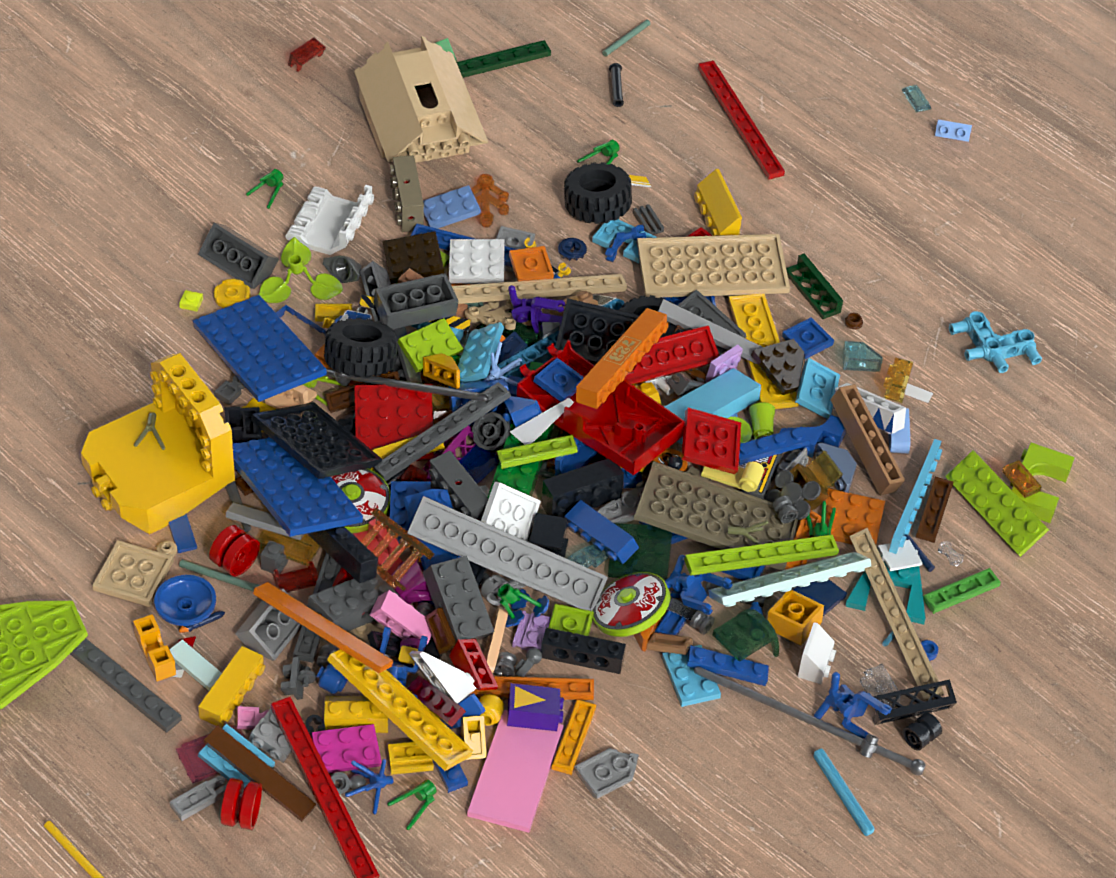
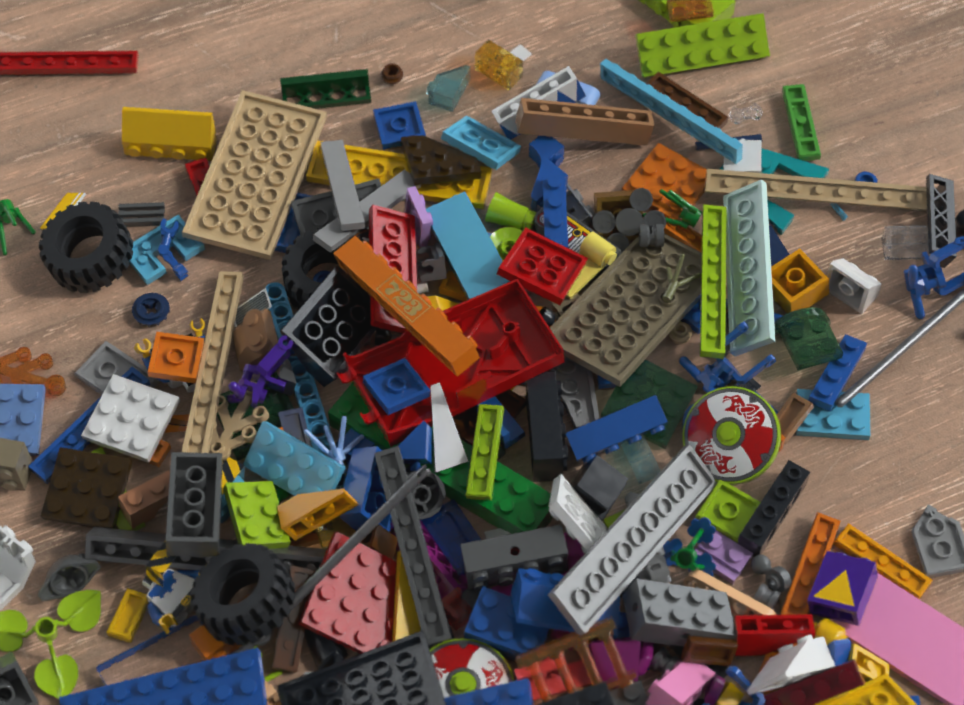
camera: 65 degrees left, 10 degrees up
(702, 622) = (769, 376): flat silver wheel -> none
(722, 309) = (342, 185): none -> light grey tile
(825, 470) = (601, 179): clear yellow piece -> none
(844, 462) = (599, 165): sand blue slope -> none

